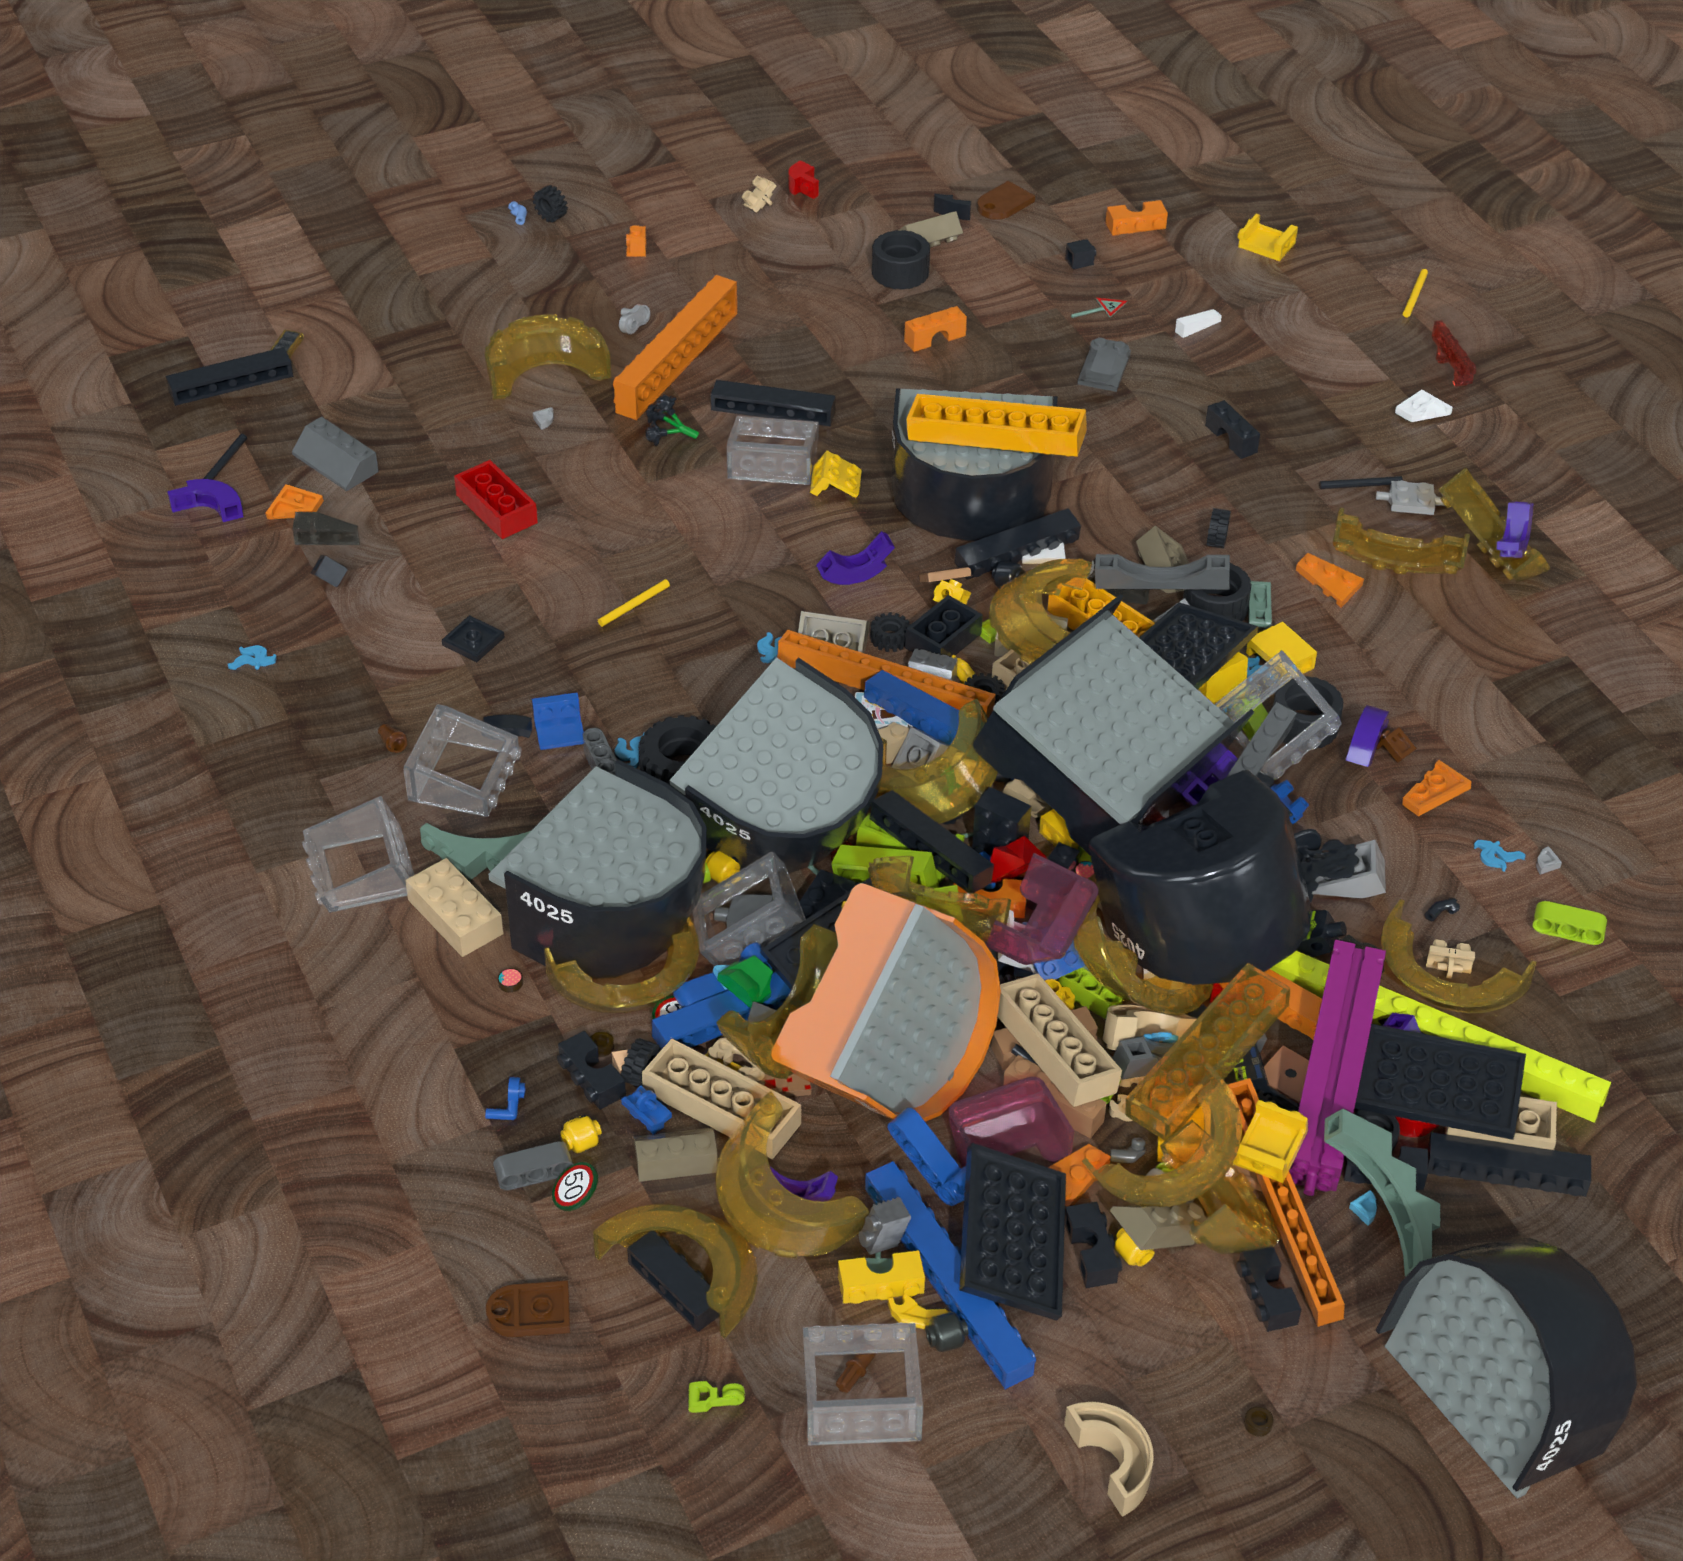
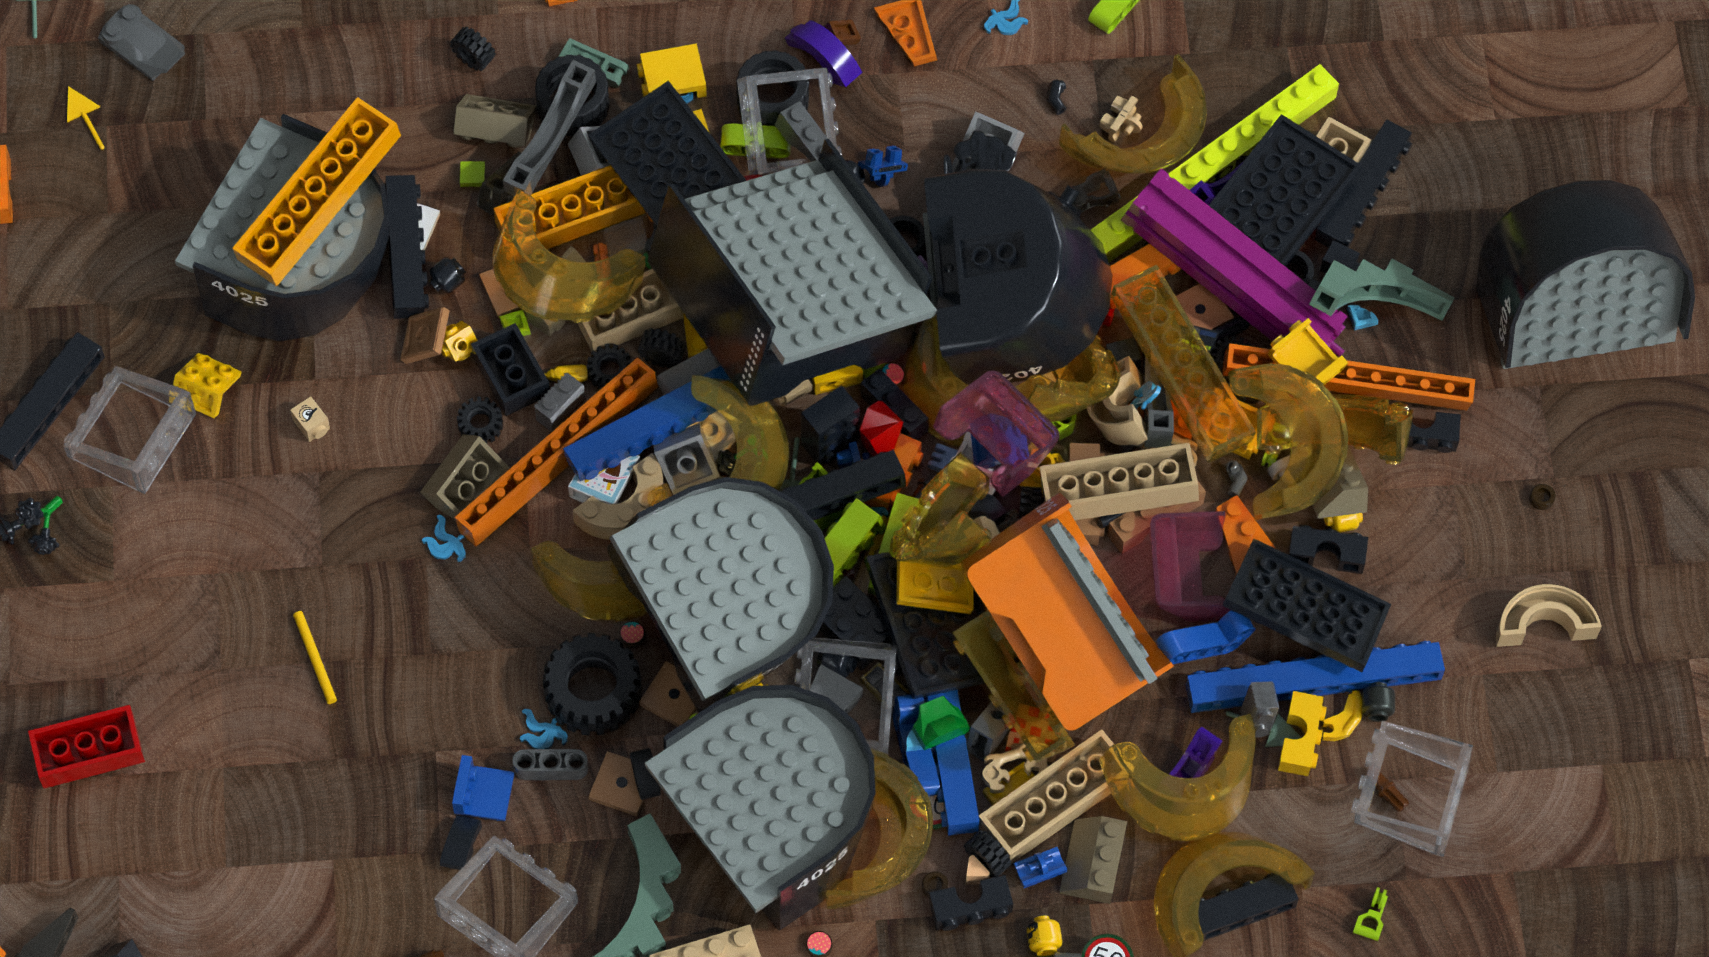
camera: 70 degrees left, 20 degrees up
(473, 638) = (298, 839): black tile -> none
(836, 537) = (310, 419): none -> tan brick
(858, 567) = (366, 411): dark purple arch -> none
(1031, 354) = (79, 106): none -> yellow piece

